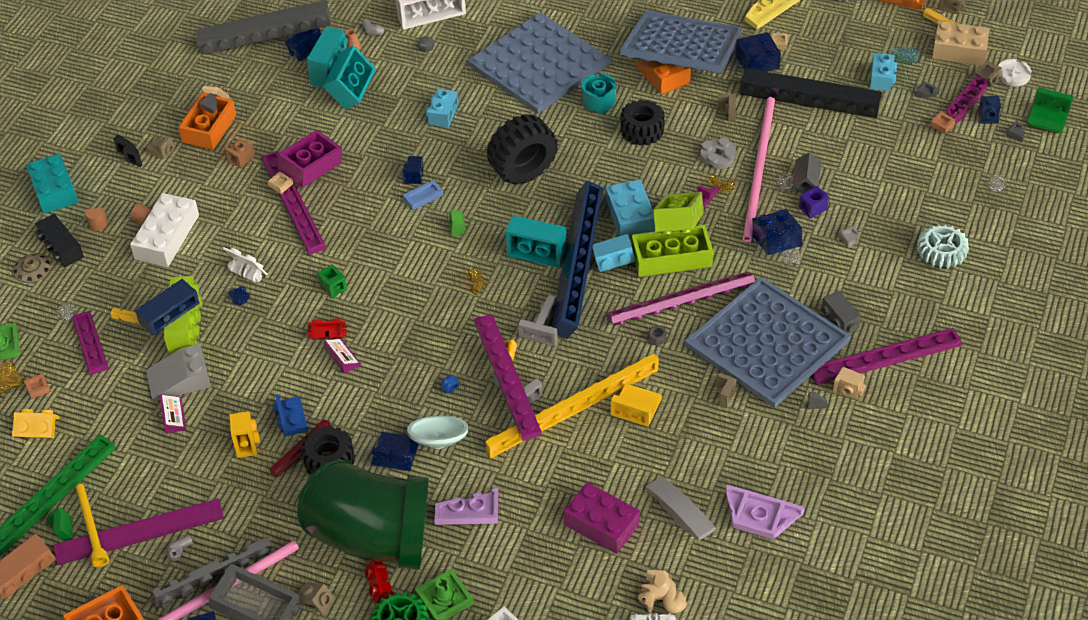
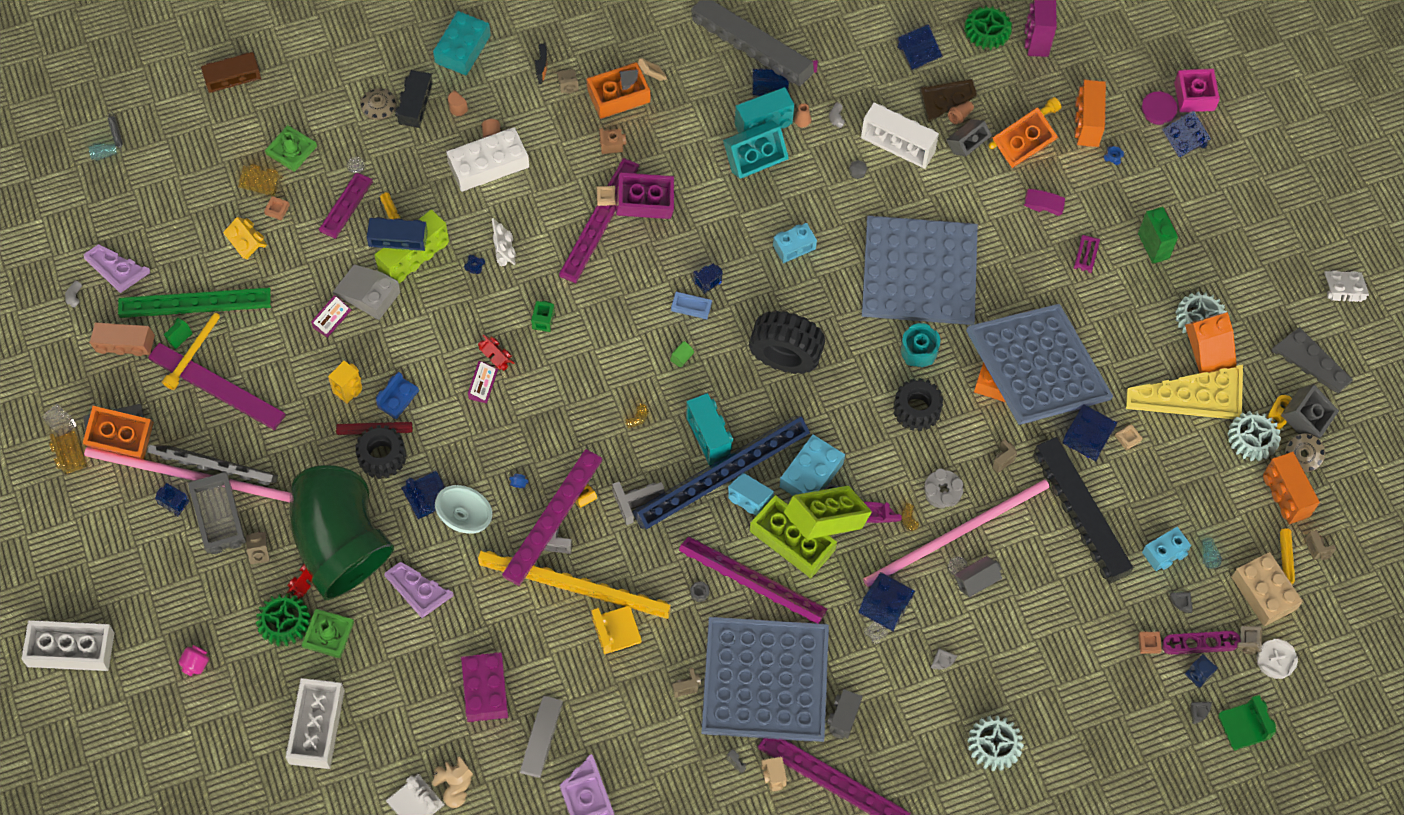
camera: 45 degrees right, 15 degrees up
(176, 547) = (223, 422): light grey arm -> none
(813, 202) = (952, 597): dark purple brick -> none
(996, 183) = (1114, 737): clear plate -> none

